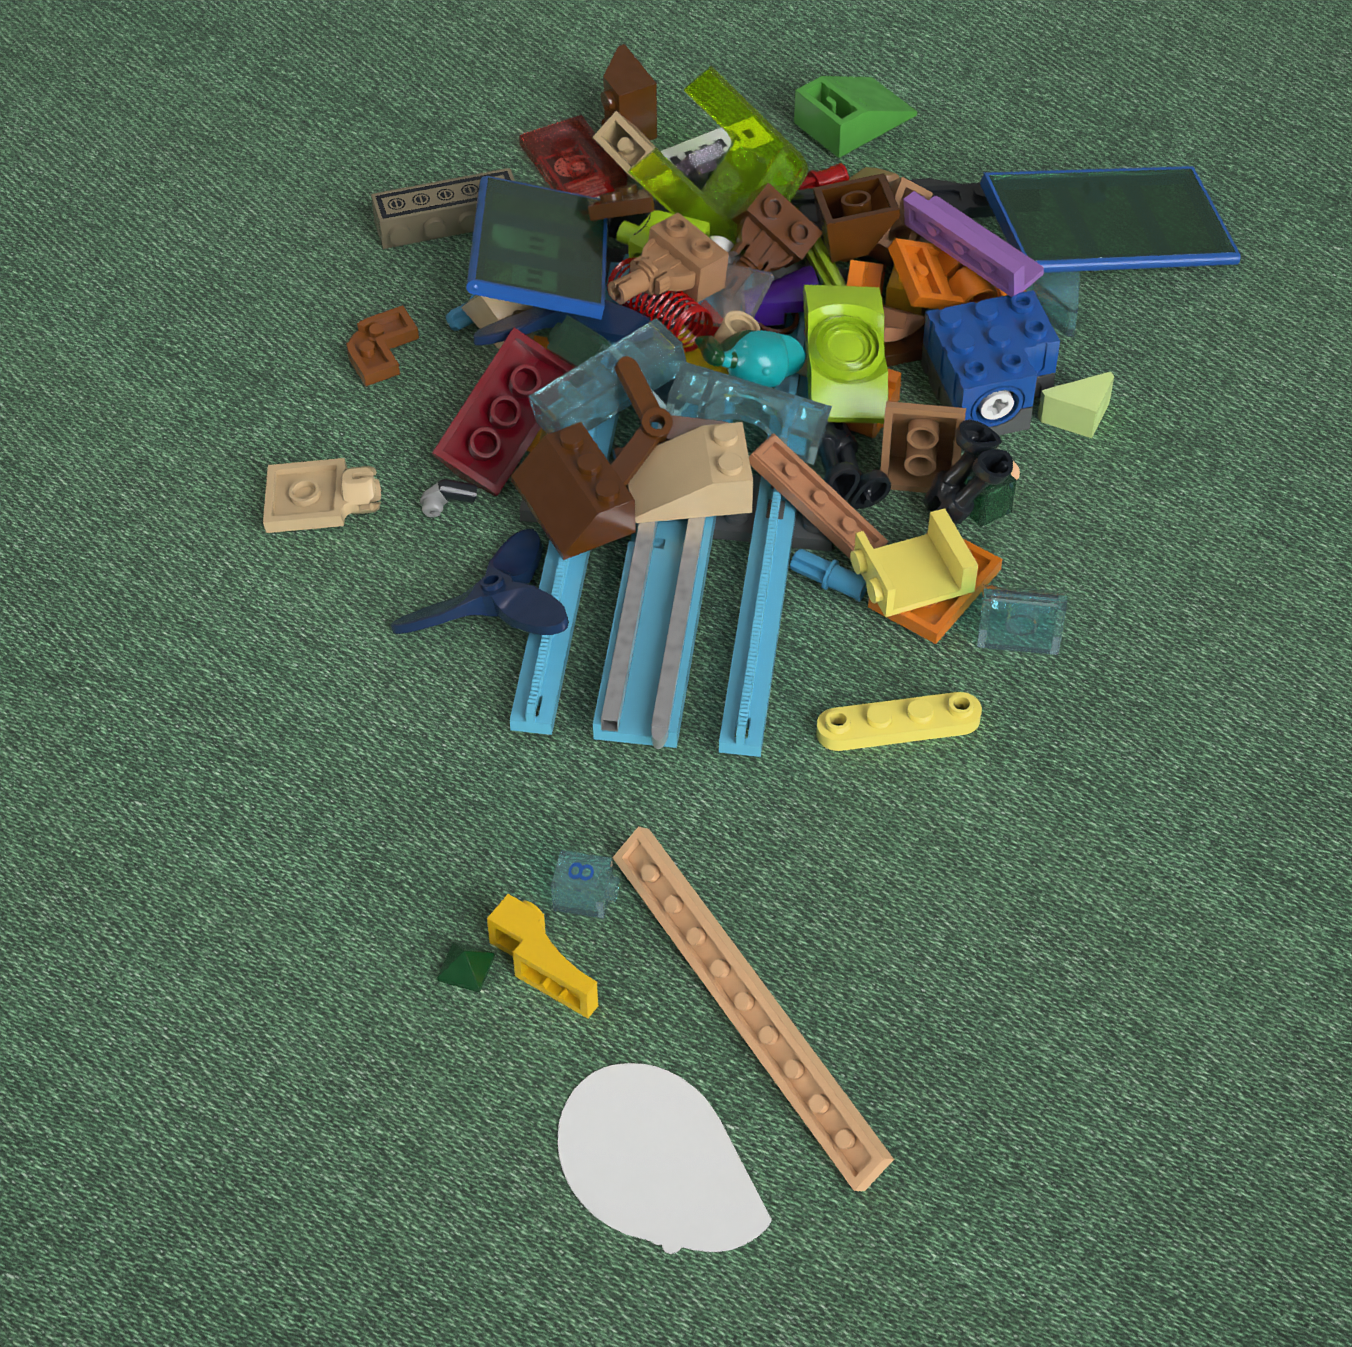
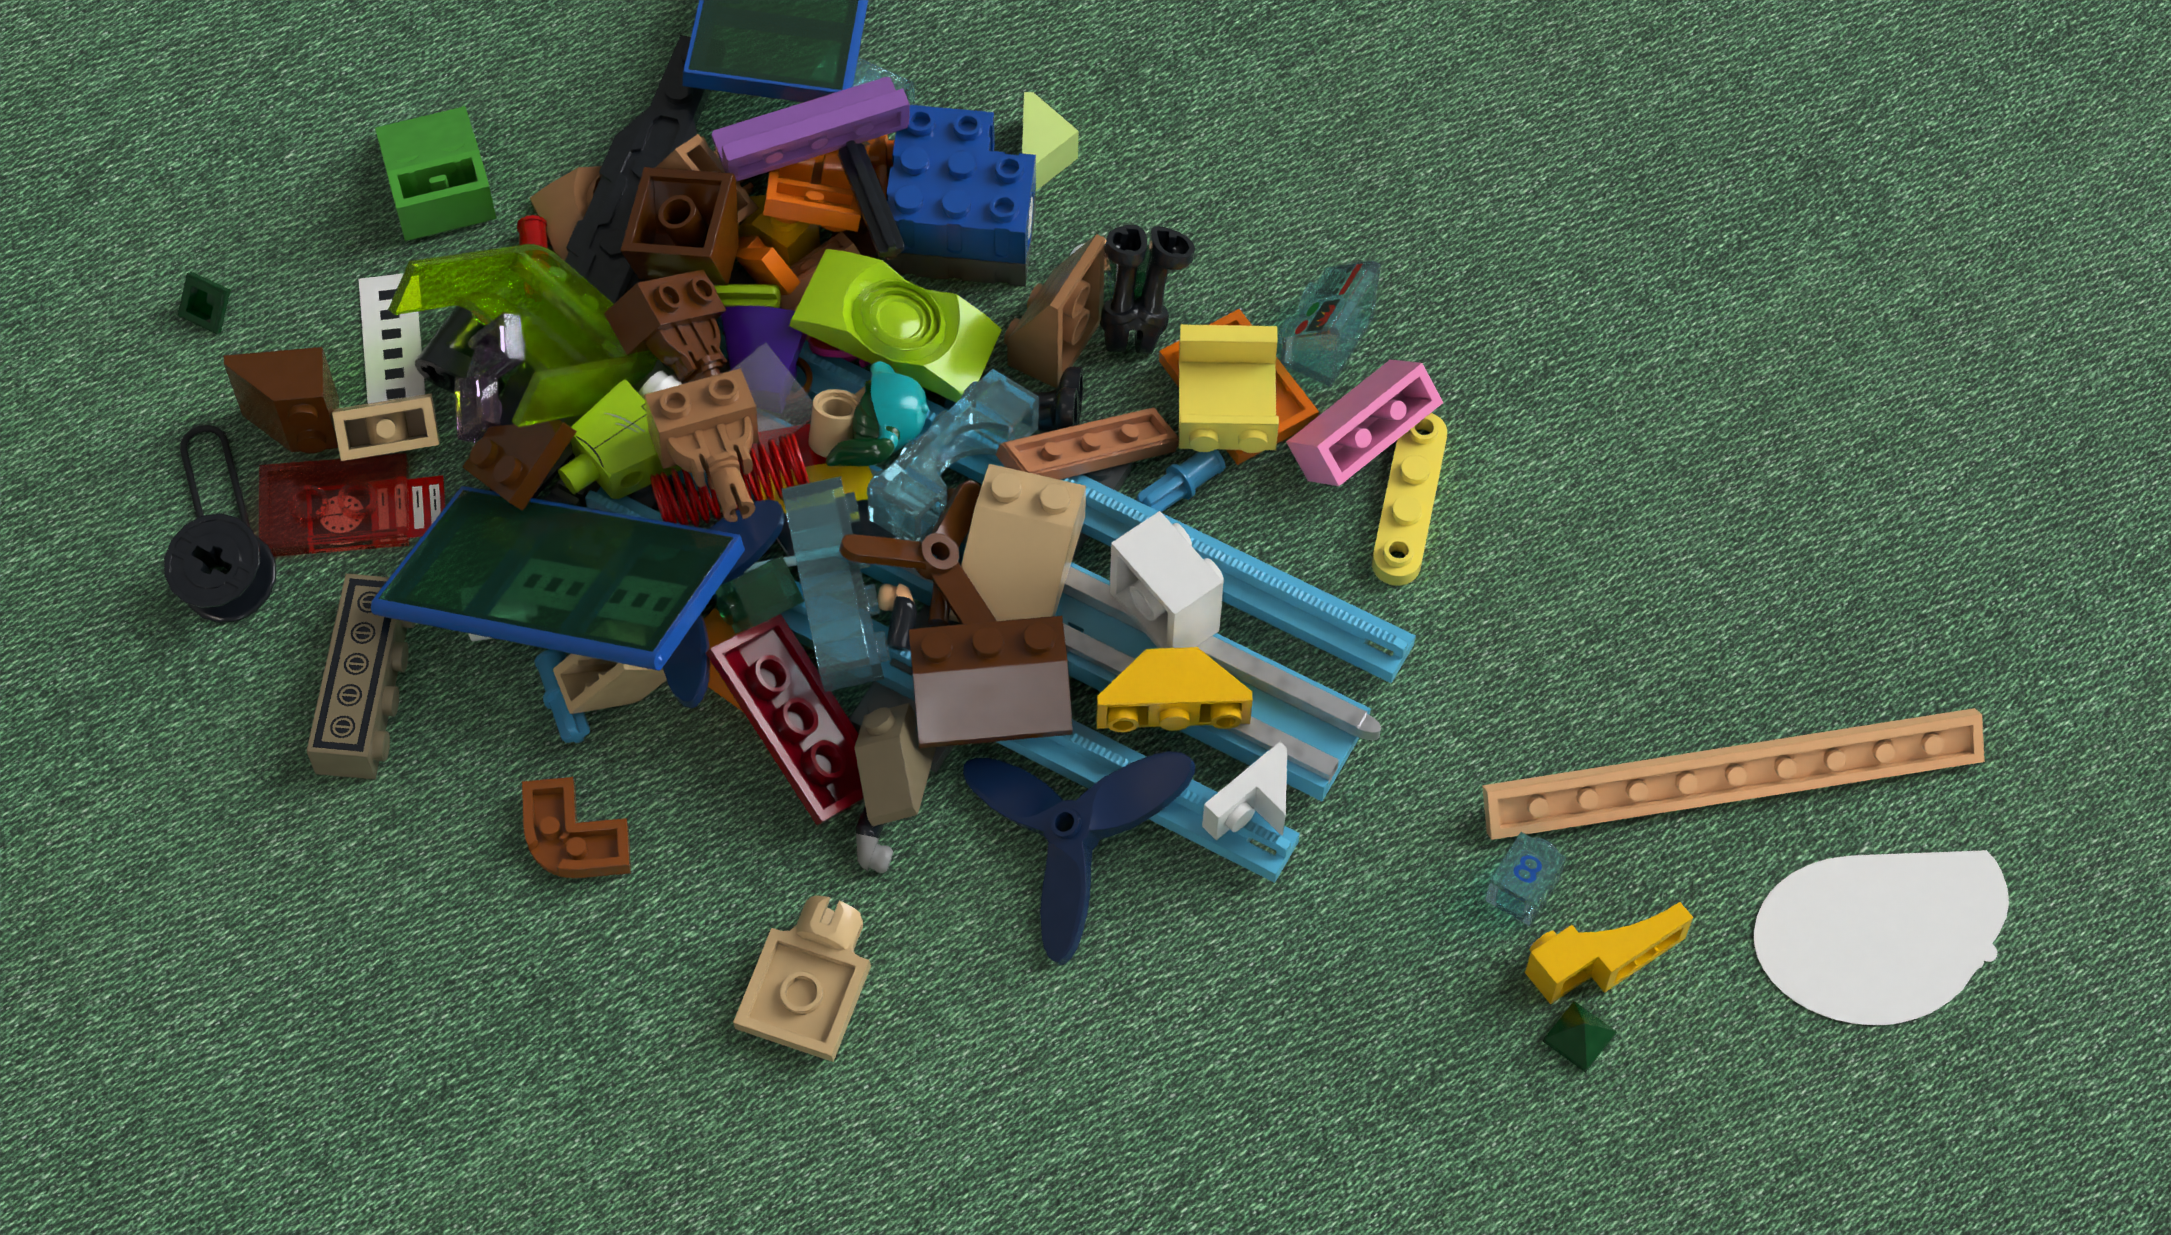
camera: 70 degrees left, 10 degrees up
(489, 118) = (210, 592): none -> black piece
(490, 474) = (892, 764): none -> dark tan slope
(550, 98) = (230, 464): none -> black piece
(555, 669) = (1255, 789): none -> white slope
(615, 592) = (1173, 692): none -> yellow slope
(616, 428) = (903, 616): none -> black arm
(689, 50) = (204, 302): none -> dark green slope
(694, 554) = (1166, 584): none -> white brick
(935, 296) = (871, 200): none -> black axle
(939, 661) = (1364, 422): none -> bright pink brick

